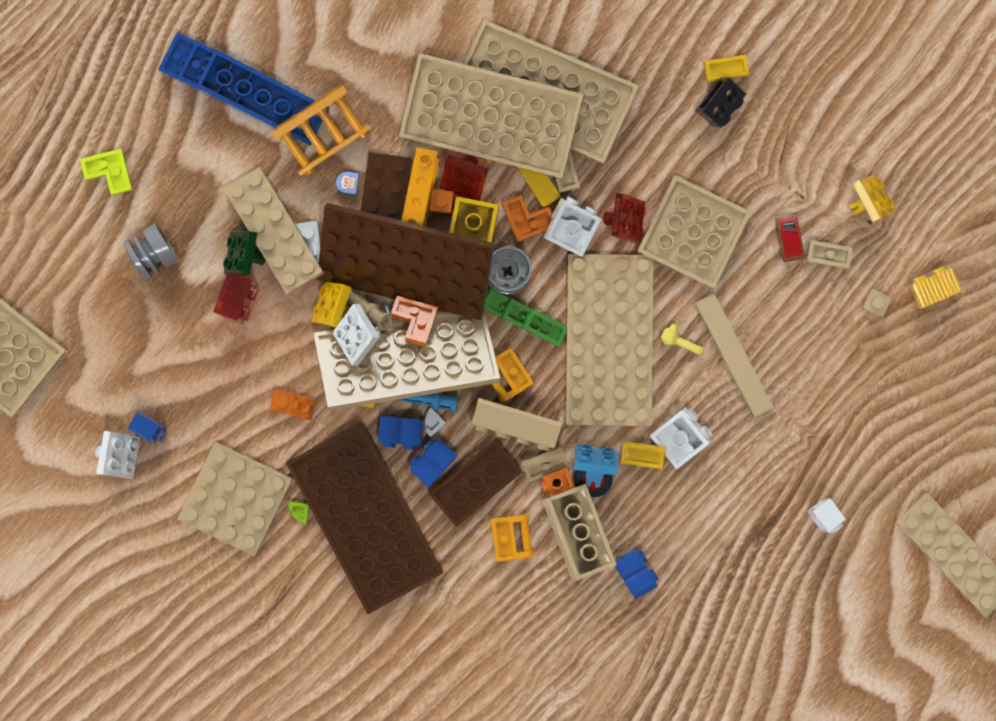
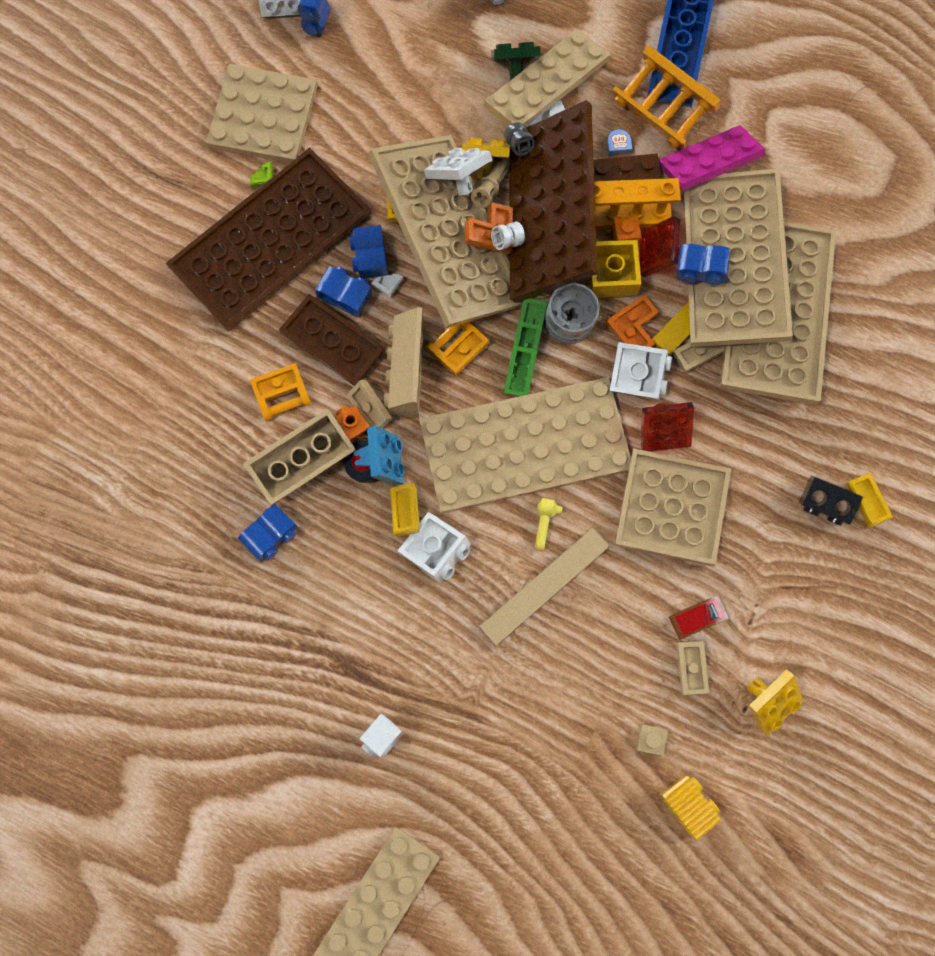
camera: 70 degrees right, 10 degrees down
(236, 298) = (467, 57): clear red brick -> none
(293, 404) = (372, 137): orange plate -> none
(335, 273) = (519, 139): none -> dark grey wheel
(387, 106) = (712, 157): none -> dark pink plate
(429, 307) = (508, 235): none -> white wheel
(436, 400) = (412, 279): dark azure pin -> none
(495, 147) = (703, 264): none -> blue brick

